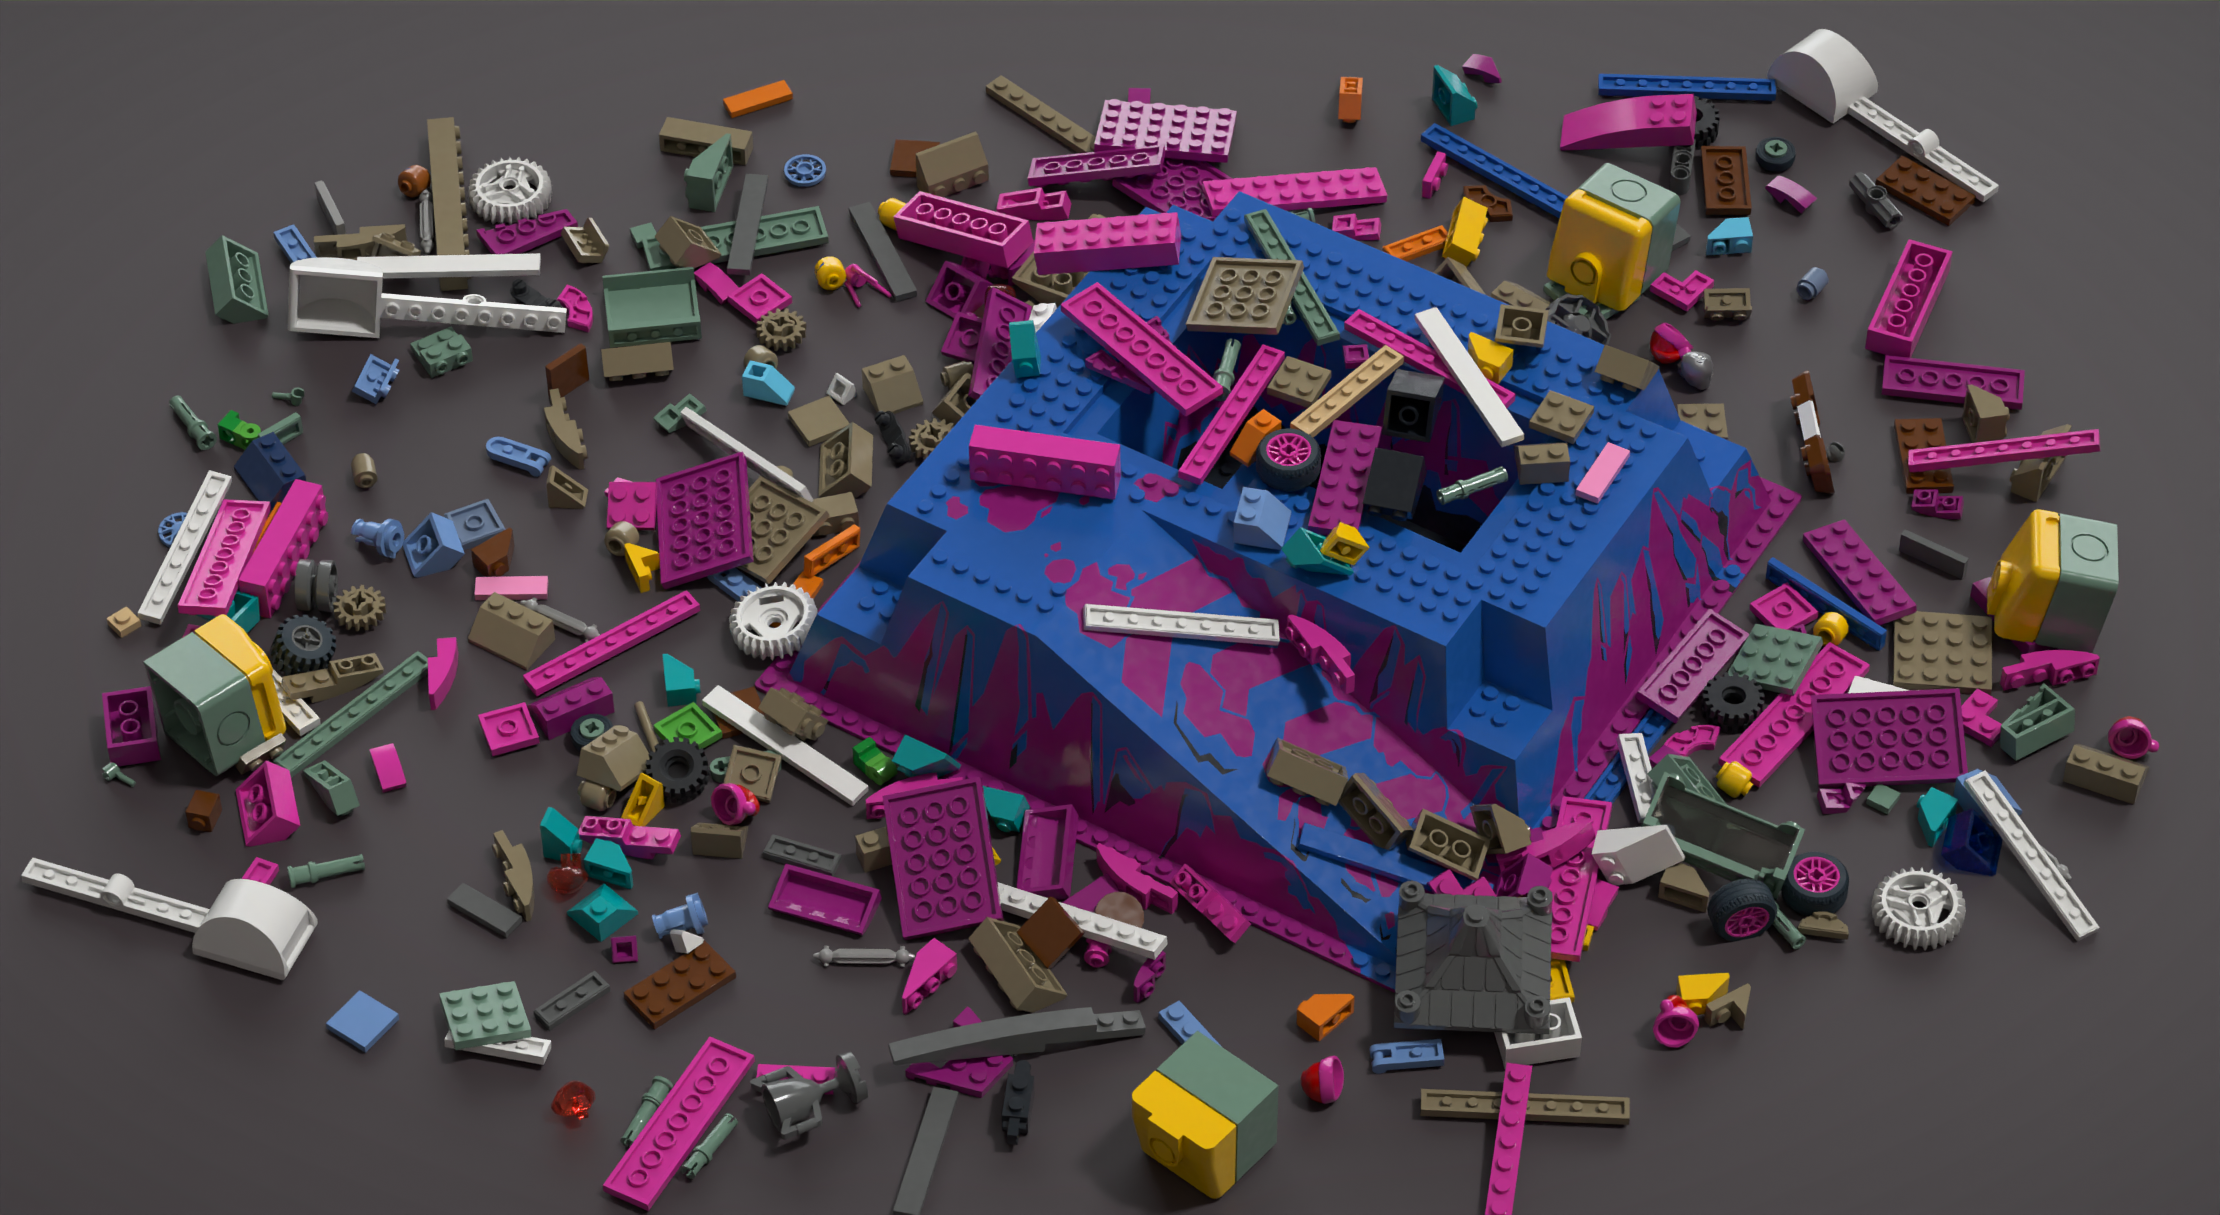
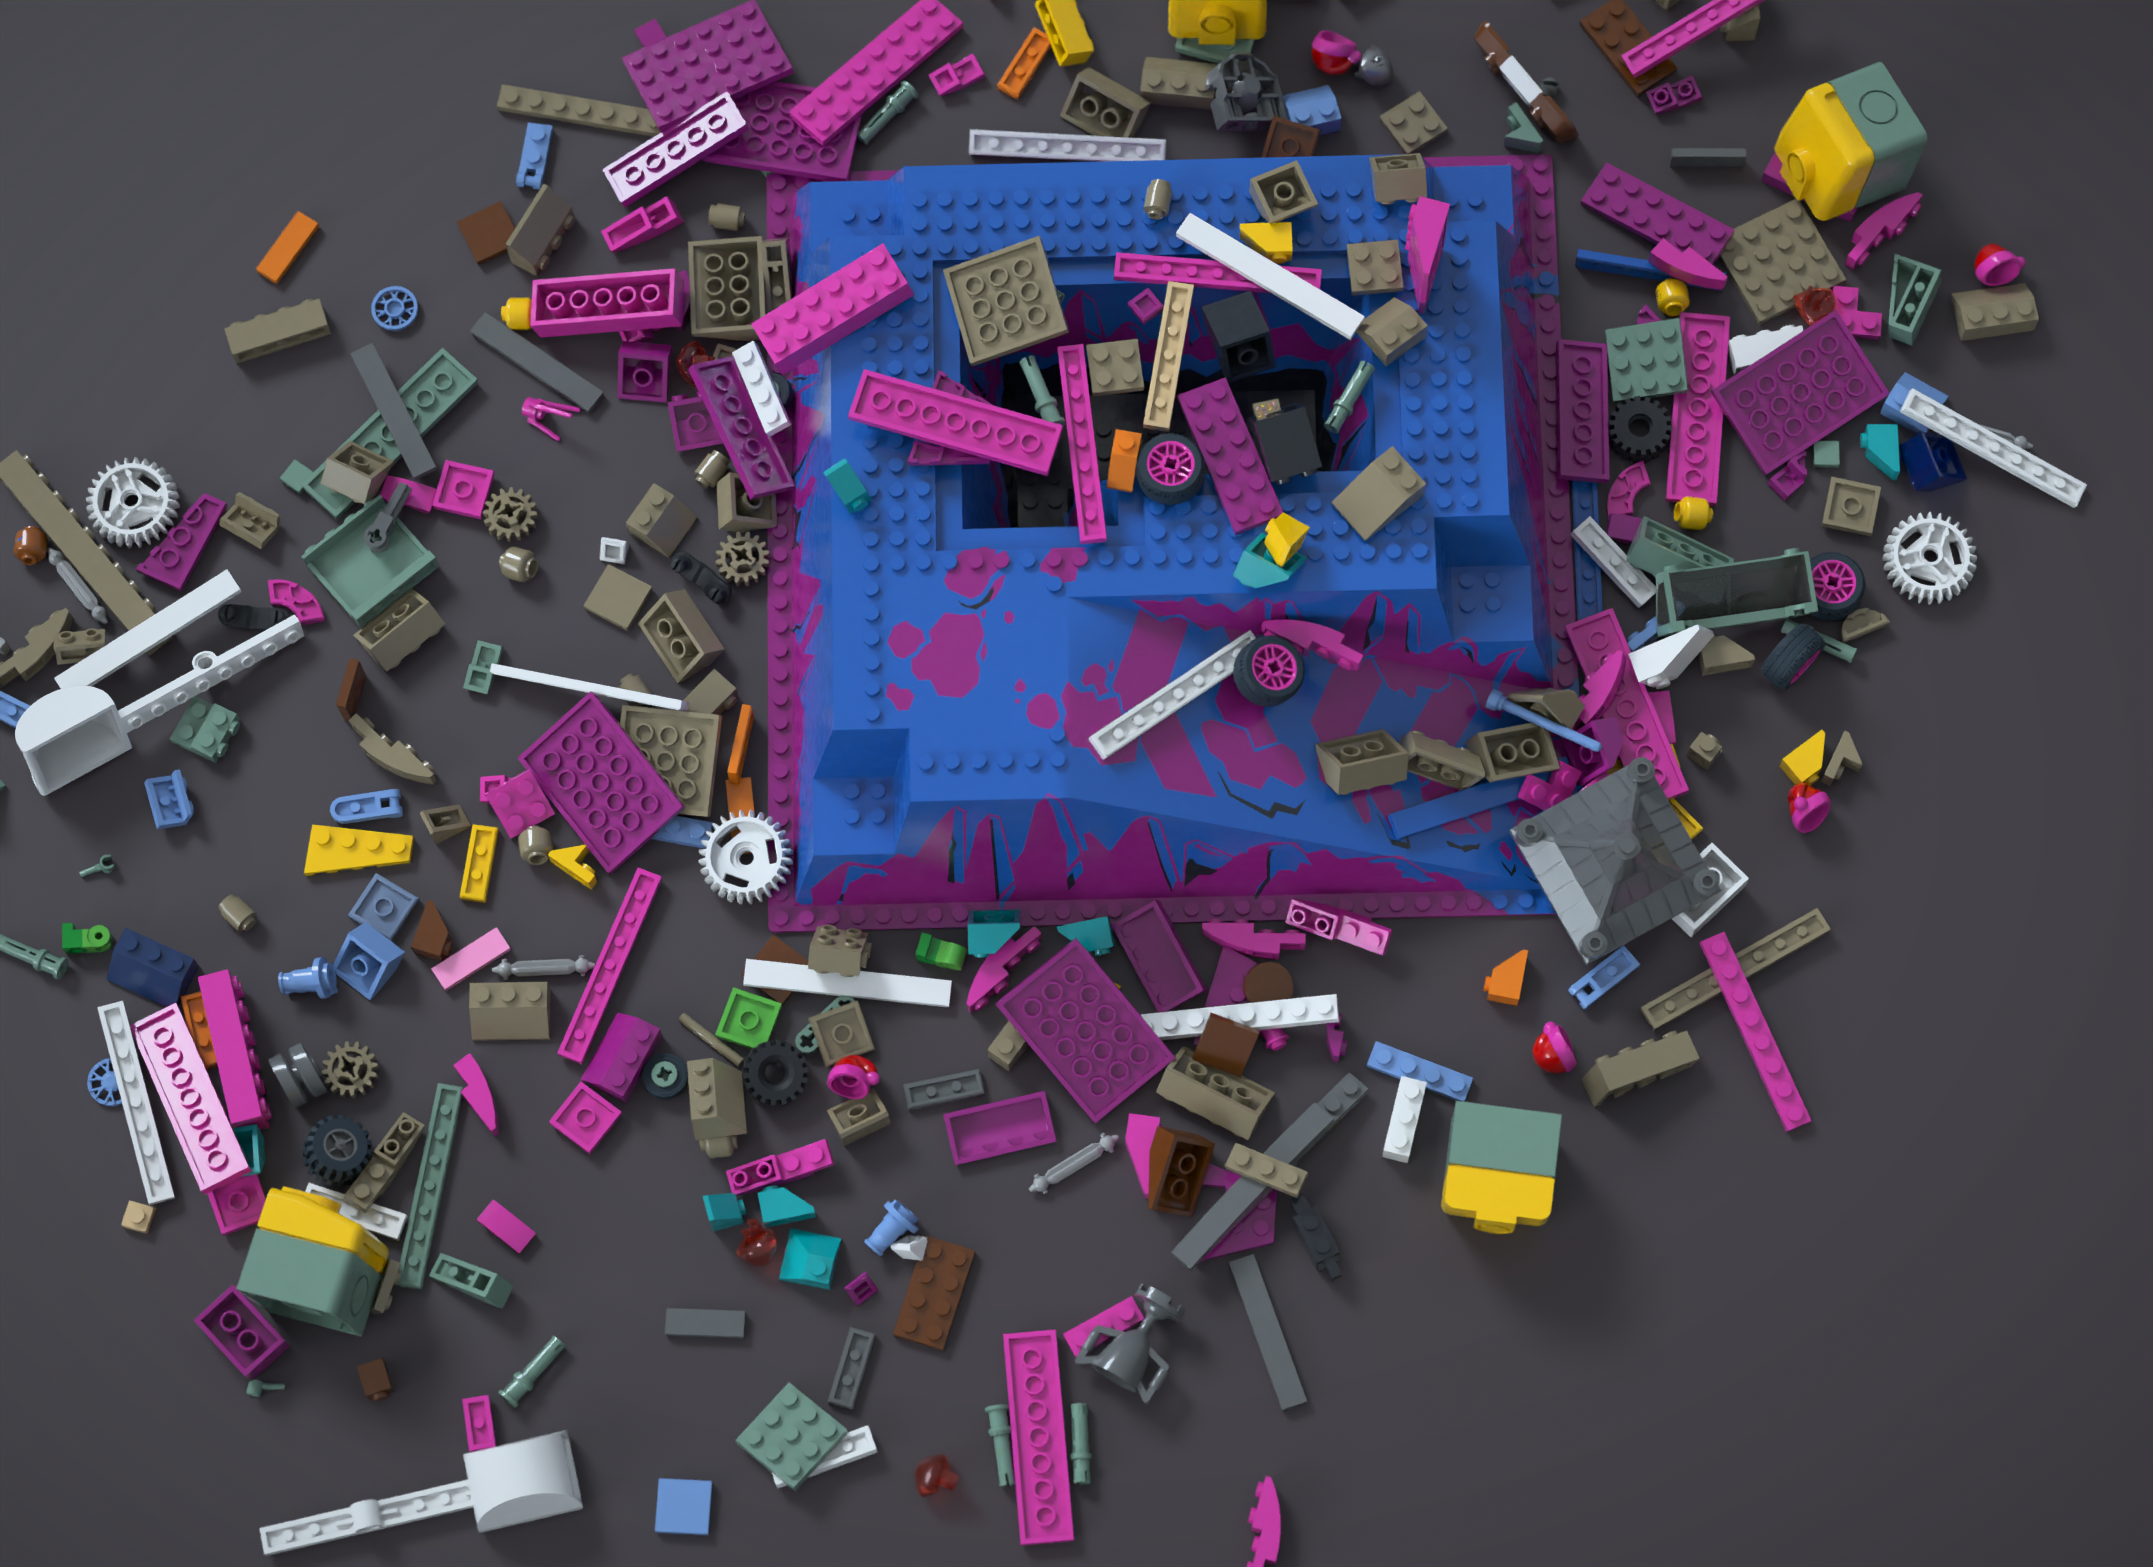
camera: 30 degrees left, 25 degrees up
(267, 805) = (429, 1337): dark pink slope -> none
(286, 428) = (127, 914): sand green tile -> none
(485, 477) = (346, 848): none -> yellow wing
(517, 874) = (718, 1275): dark tan slope -> none
(570, 532) = (479, 863): none -> yellow tile
(645, 801) = (766, 1124): yellow slope -> none
(679, 682) = (703, 972): teal slope -> none
(680, 285) = (386, 521): none -> dark grey connector
(709, 175) = (316, 381): sand green slope -> none
(766, 384) = (545, 588): medium azure slope -> none
(830, 273) = (509, 421): yellow head -> none
(940, 995) = (1177, 1170): none -> reddish brown slope
(993, 126) = (534, 155): none -> medium blue plate
(1011, 1025) = (1266, 1170): none -> dark tan plate
(1044, 462) = (958, 608): dark pink brick -> none
(1148, 1061) = (1404, 1119): none -> white brick
(1260, 520) = (1190, 551): medium blue slope -> none
(1269, 648) = (1269, 671): none -> wheel
(1304, 298) = (1007, 233): sand green tile -> none
(1386, 1127) = (1639, 1066): none -> dark tan wedge
(1420, 293) = (1158, 199): none -> dark tan brick
(1446, 556) = (1379, 494): none -> dark tan slope
(1460, 805) = (1498, 701): none -> medium blue piece
(1602, 472) = (1452, 311): bright pink tile -> none
(1607, 404) = (1425, 245): none -> dark pink slope
(1617, 942) = (1704, 750): none -> dark tan brick
(1783, 608) = (1617, 298): dark pink plate -> none
(1787, 467) = (1524, 134): none -> sand green slope
(1854, 604) = (1686, 266): none -> dark pink slope
(1876, 841) = (1851, 506): none -> dark tan plate
(1949, 681) = (1815, 304): none -> clear red piece

